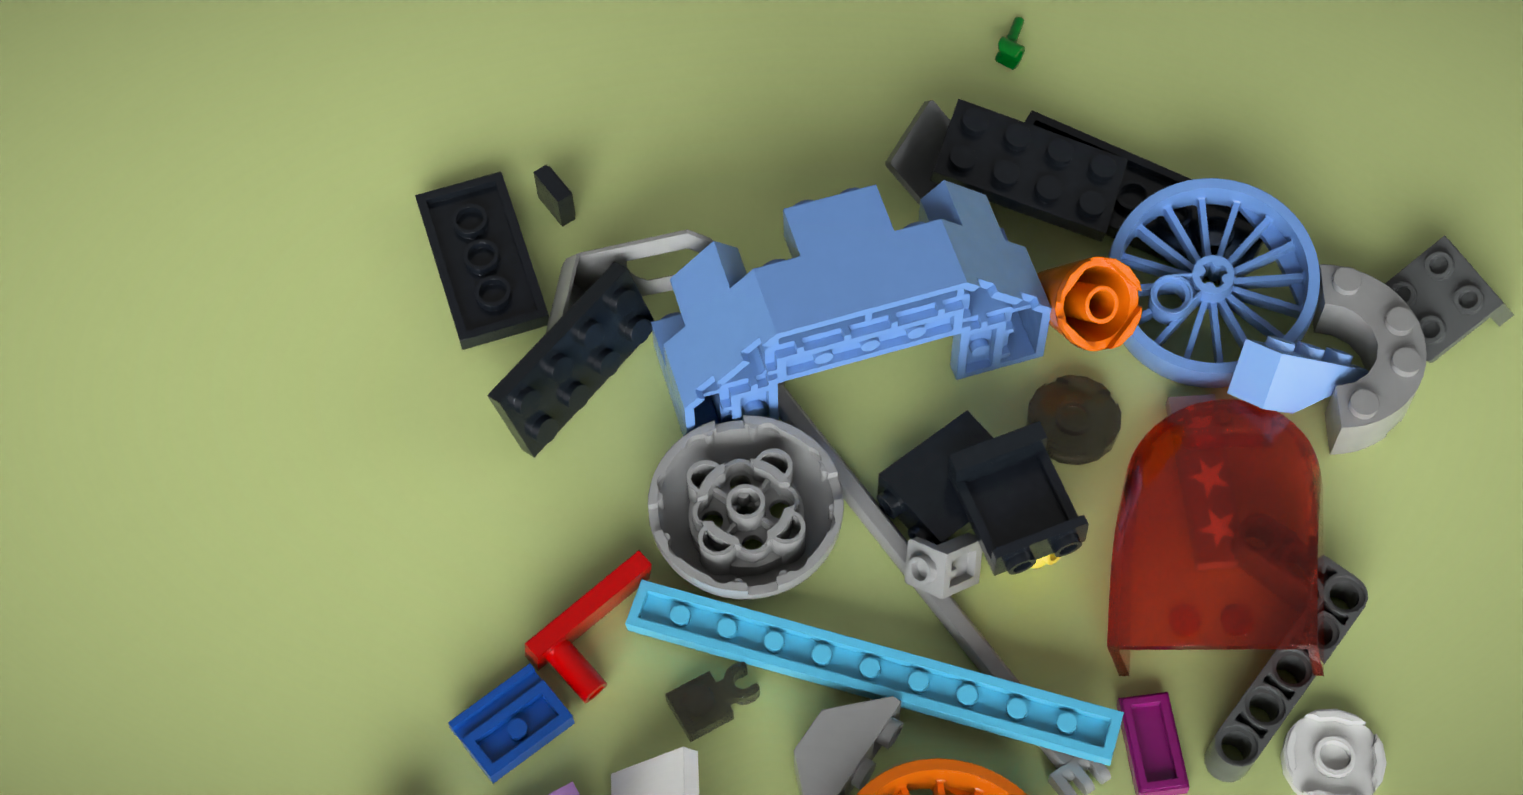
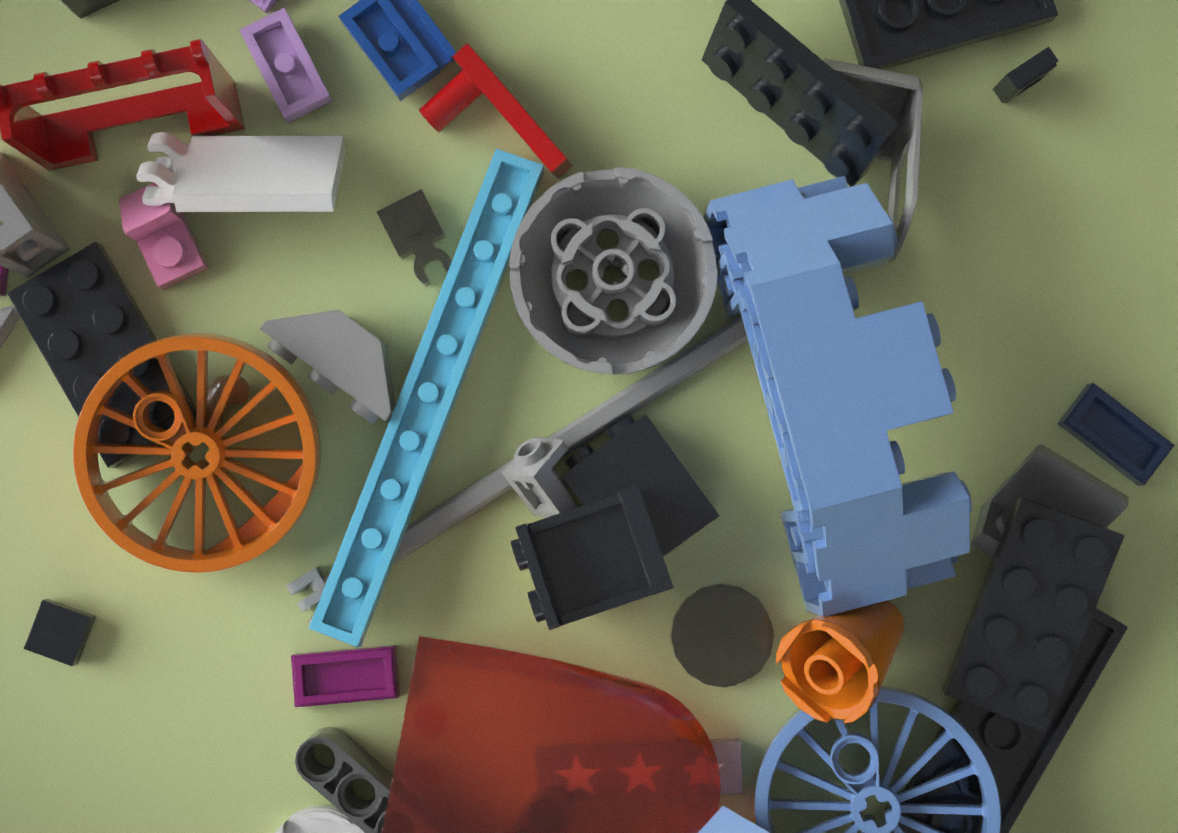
camera: 85 degrees right, 25 degrees up
(866, 127) = (1116, 434): none -> dark blue tile

